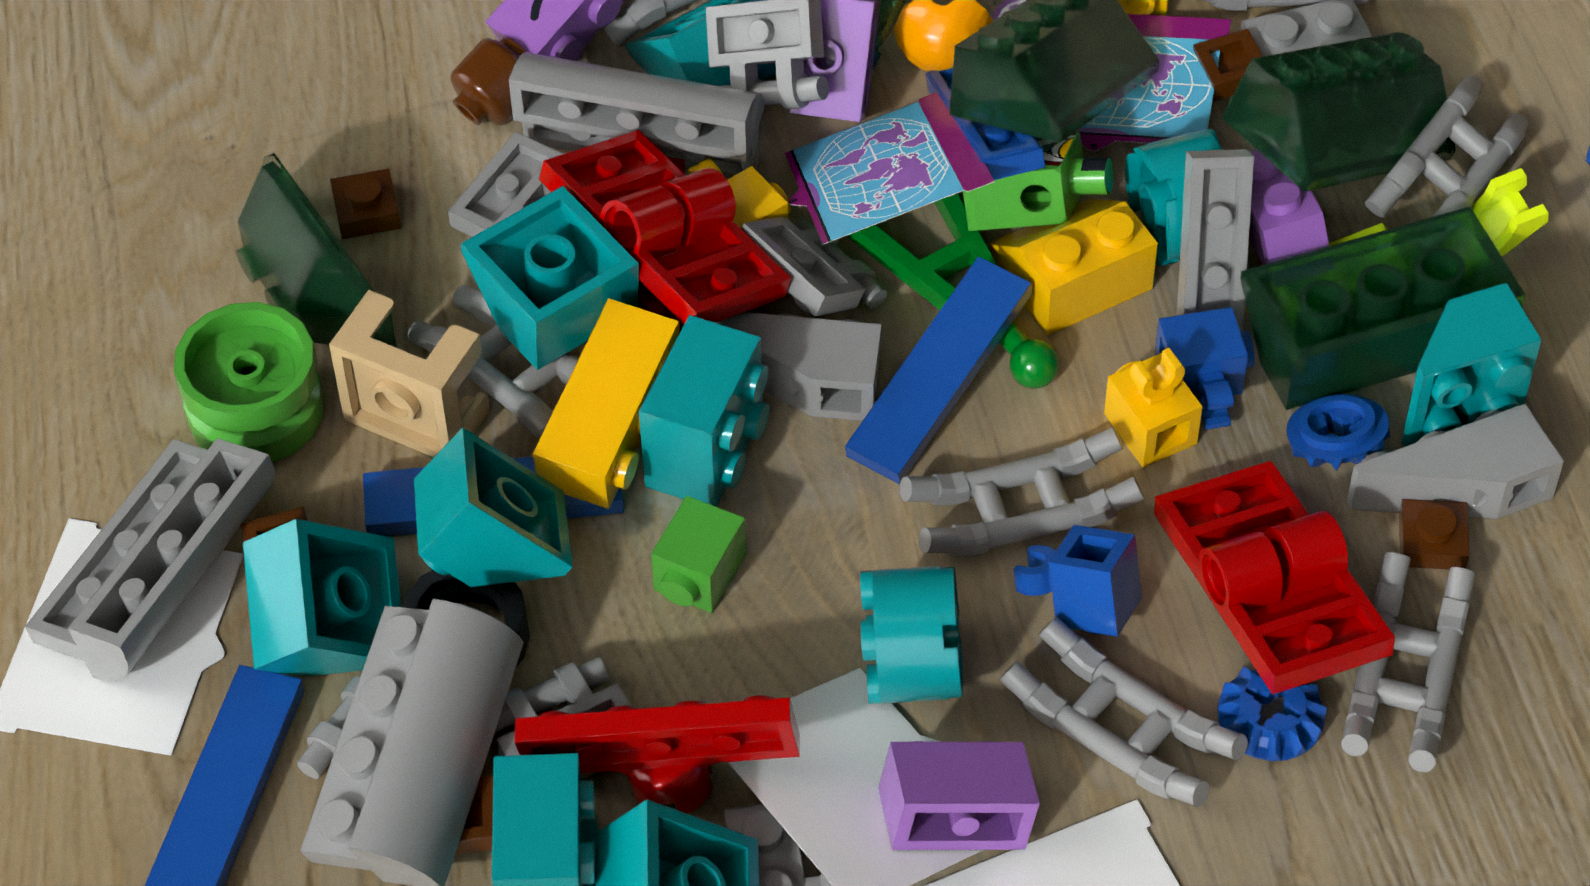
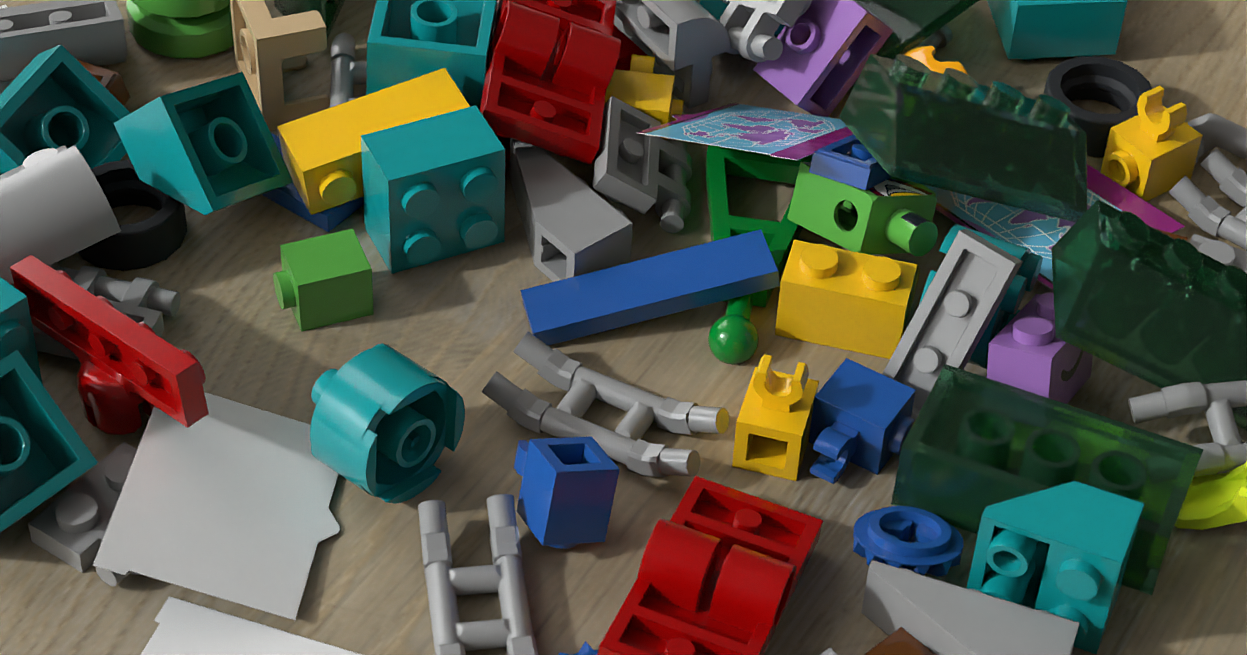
camera: 40 degrees right, 10 degrees down
(958, 795) = (273, 548): medium lavender brick -> none

